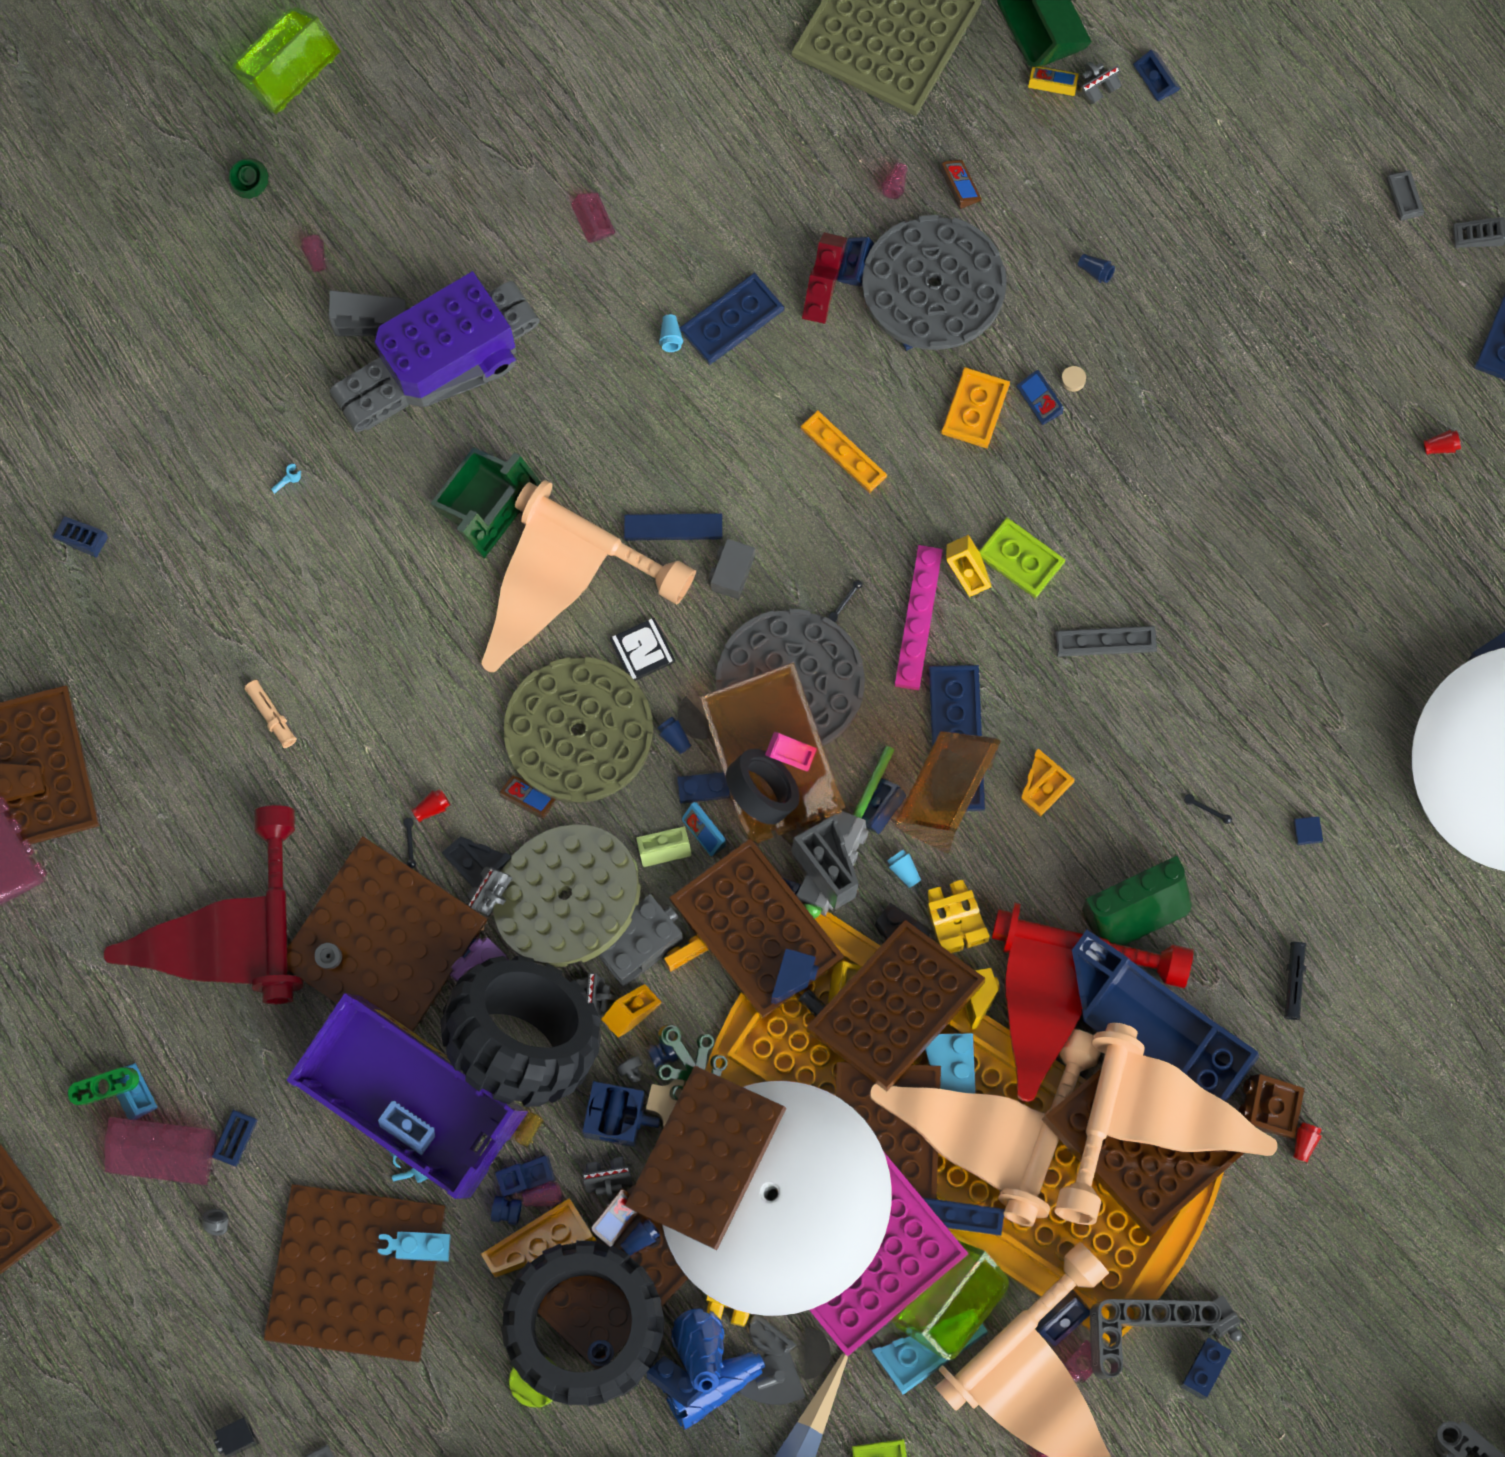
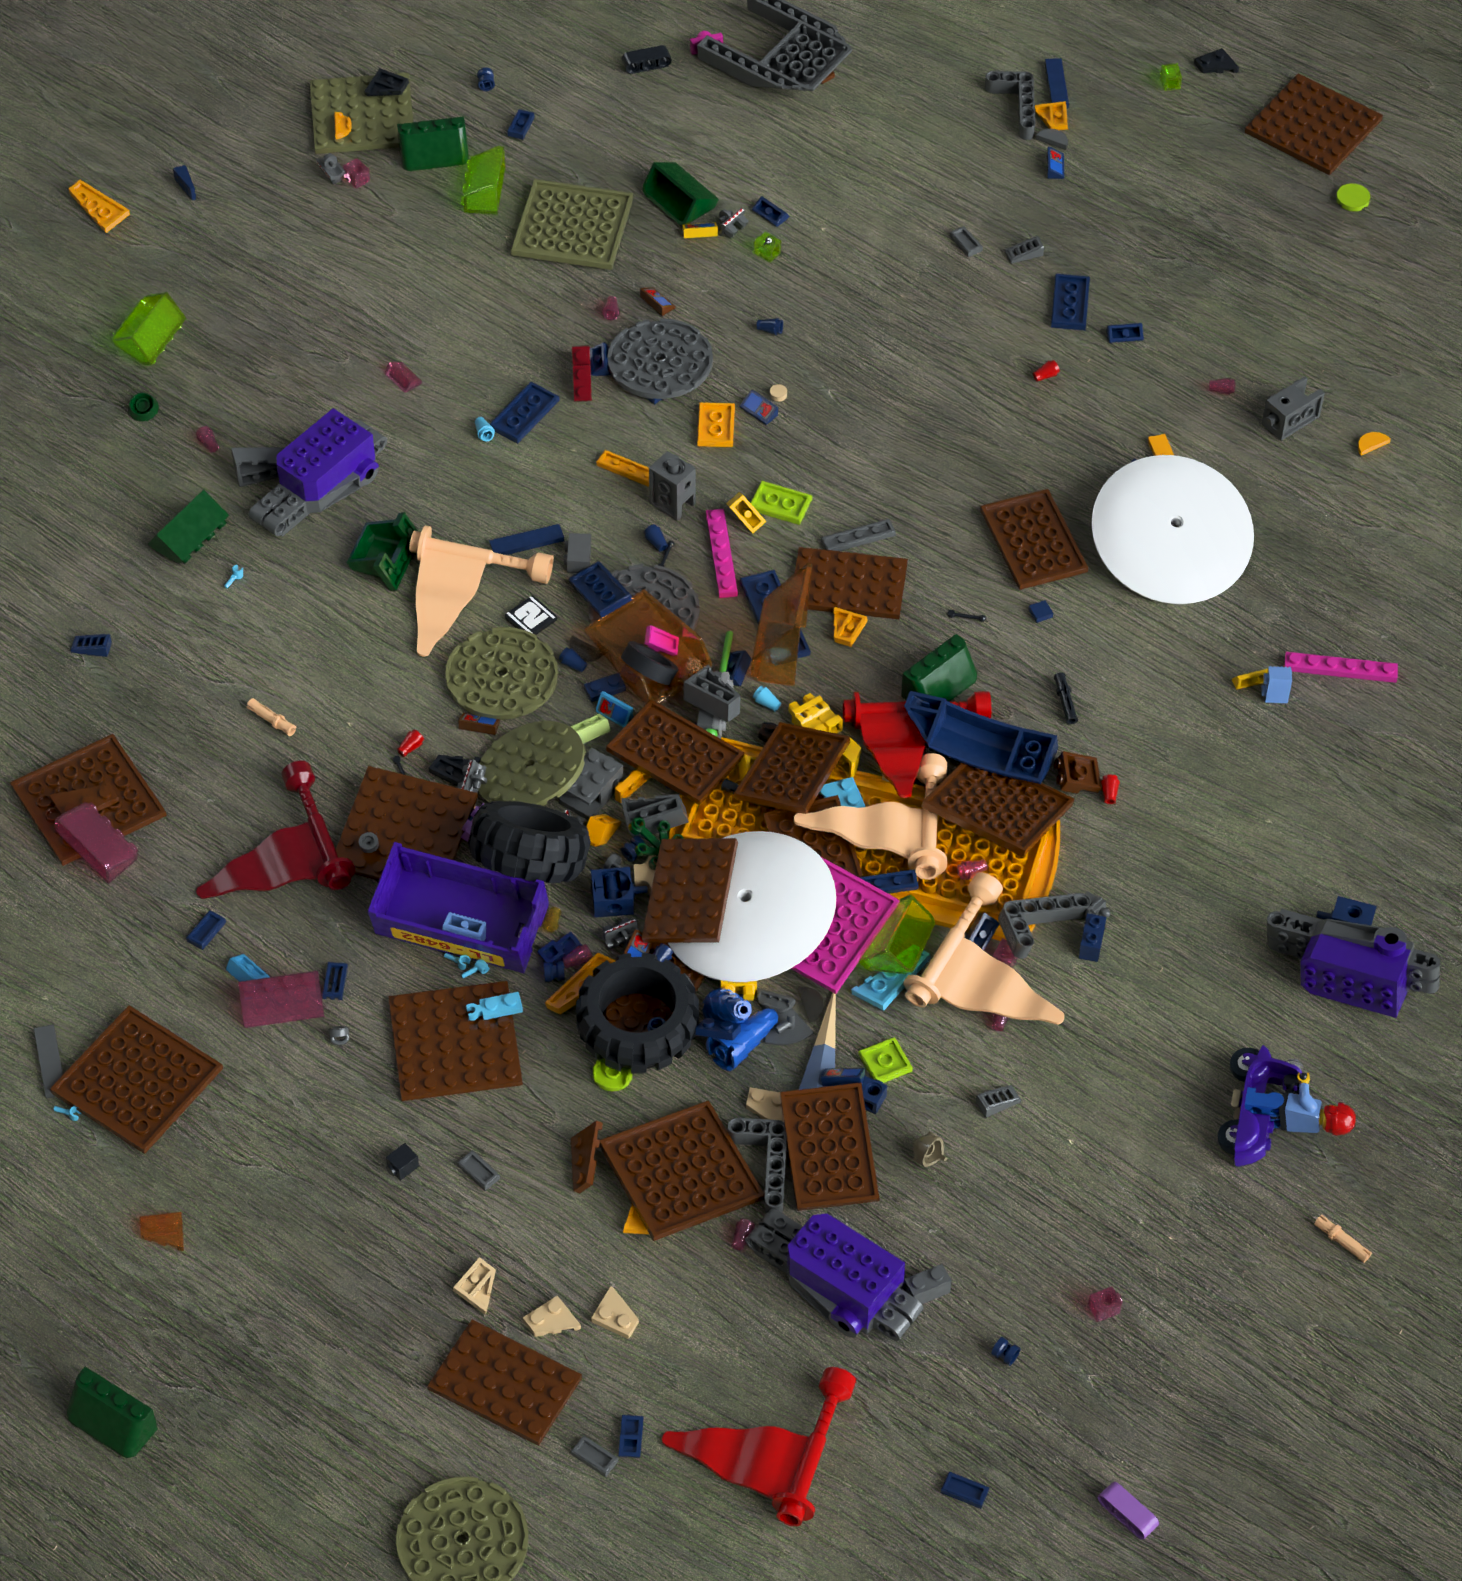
camera: 20 degrees left, 20 degrees down
(99, 1013) = (206, 930): none -> dark blue tile
(113, 1088) = (216, 982): green beam -> none
(248, 393) = (190, 529): none -> dark green windscreen
(699, 1014) = (655, 810): none -> dark grey wedge
(740, 639) = (600, 589): none -> dark blue tile
(794, 975) = (713, 766): dark blue slope -> none
(840, 571) = (655, 537): none -> dark blue cone
(879, 500) = (671, 484): none -> dark grey torso
(1070, 712) = (854, 582): none -> reddish brown plate
(1074, 1229) = (968, 869): none -> clear pink cone
(1133, 135) = (767, 246): none -> clear neon green brick
(1151, 1105) = (995, 777): light nougat flag -> none
(1336, 713) = (1034, 539): none -> reddish brown plate

